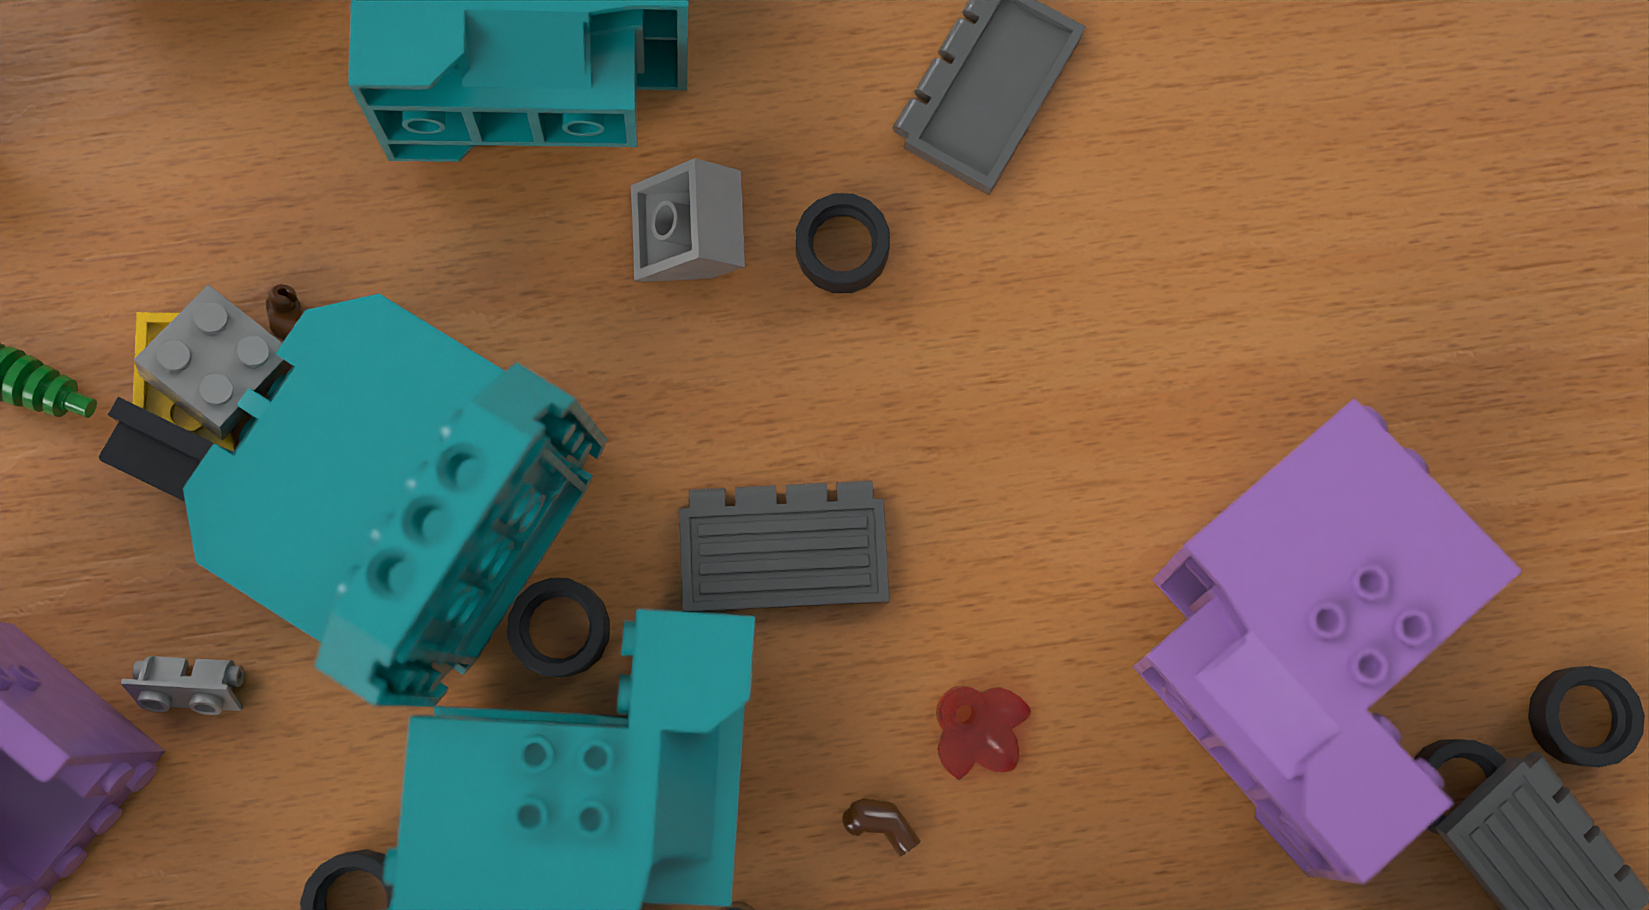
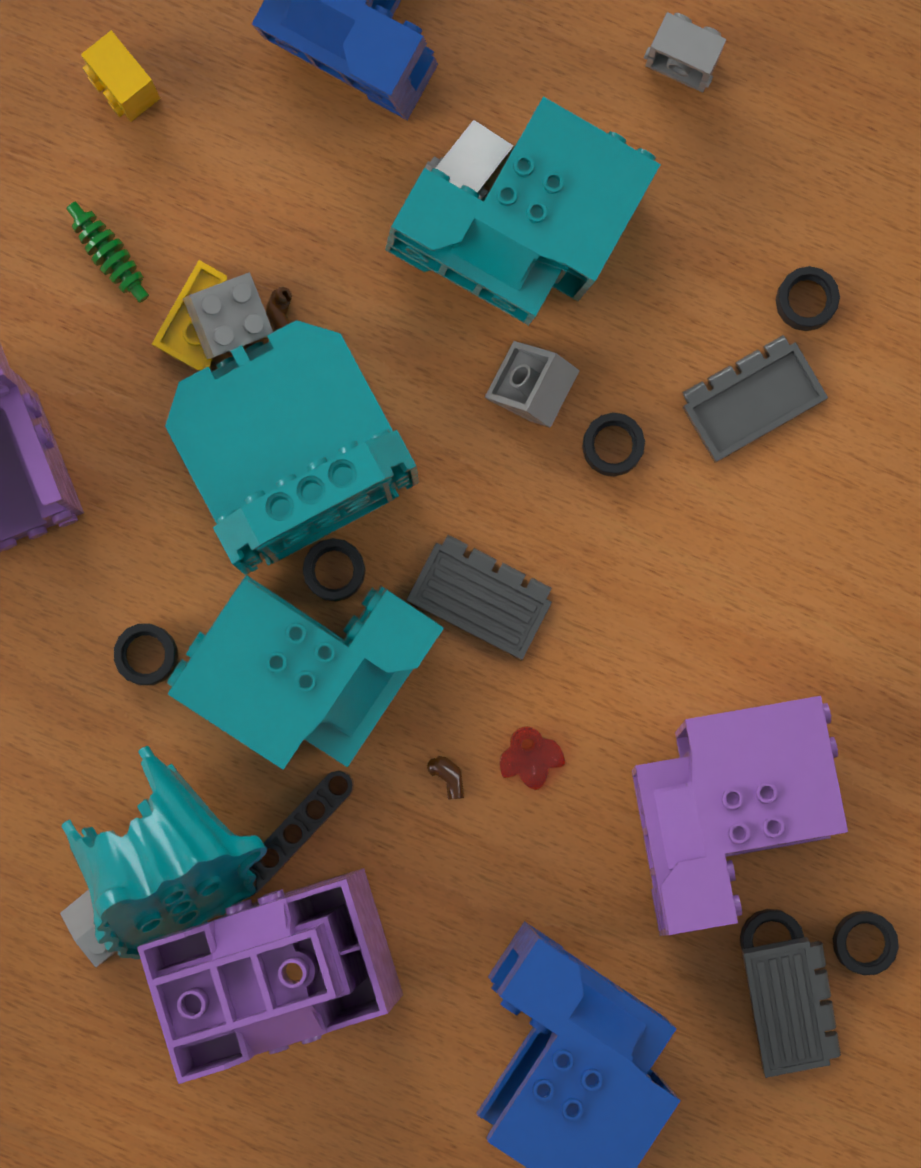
camera: 30 degrees right, 5 degrees up
(153, 448) = (171, 348): black panel -> none
(163, 684) = (126, 494): light grey hinge -> none

